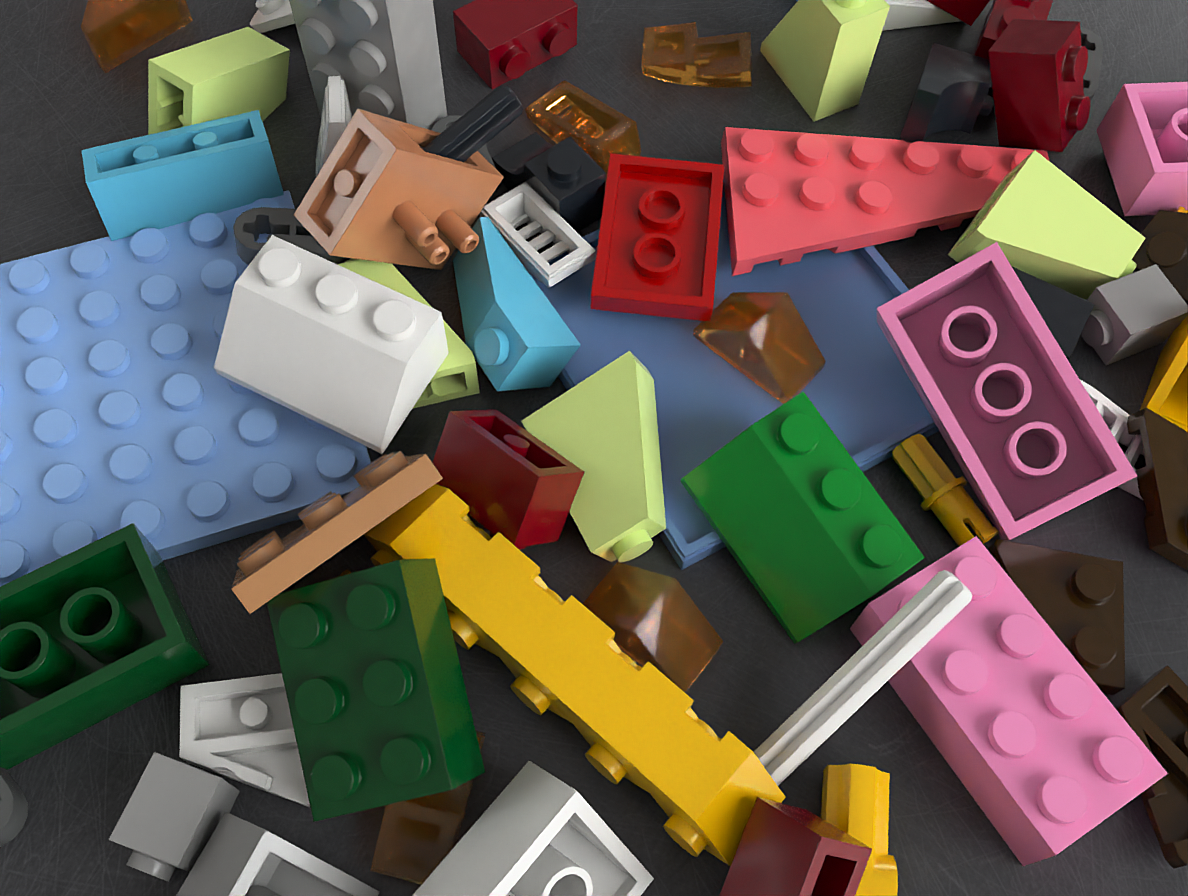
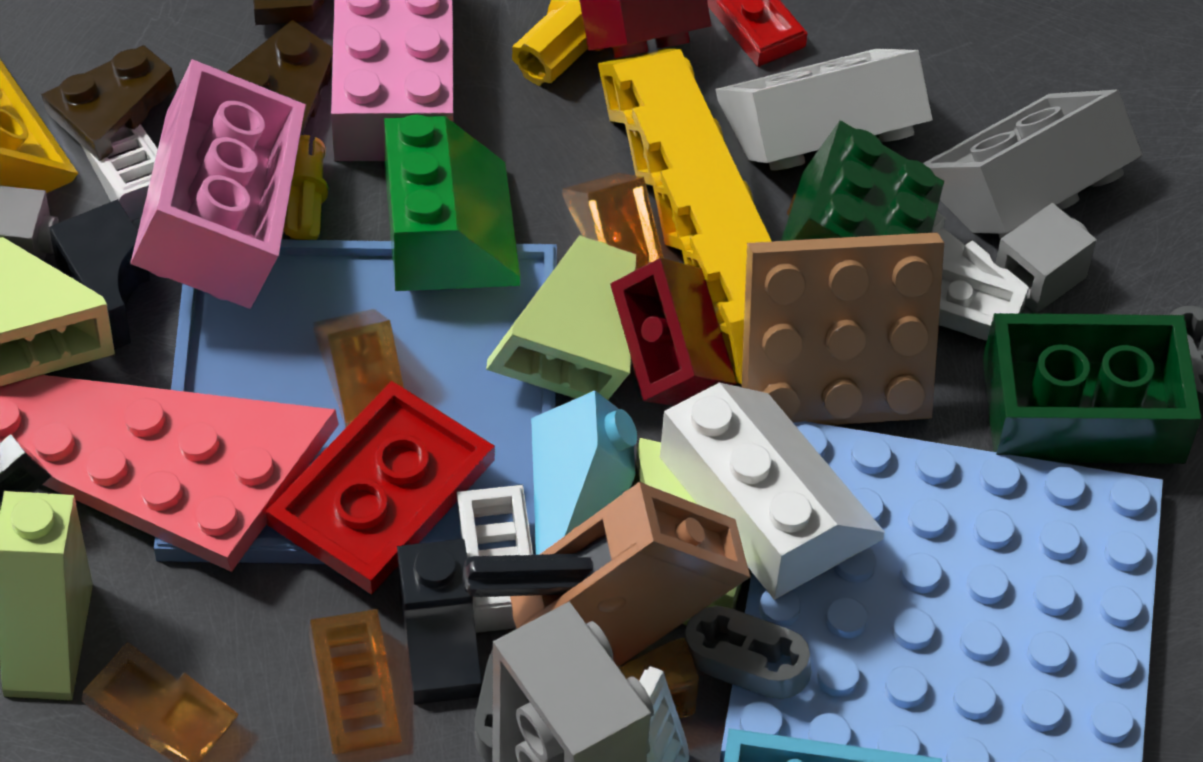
camera: 150 degrees left, 10 degrees down
(863, 674) = (498, 77): white axle -> none

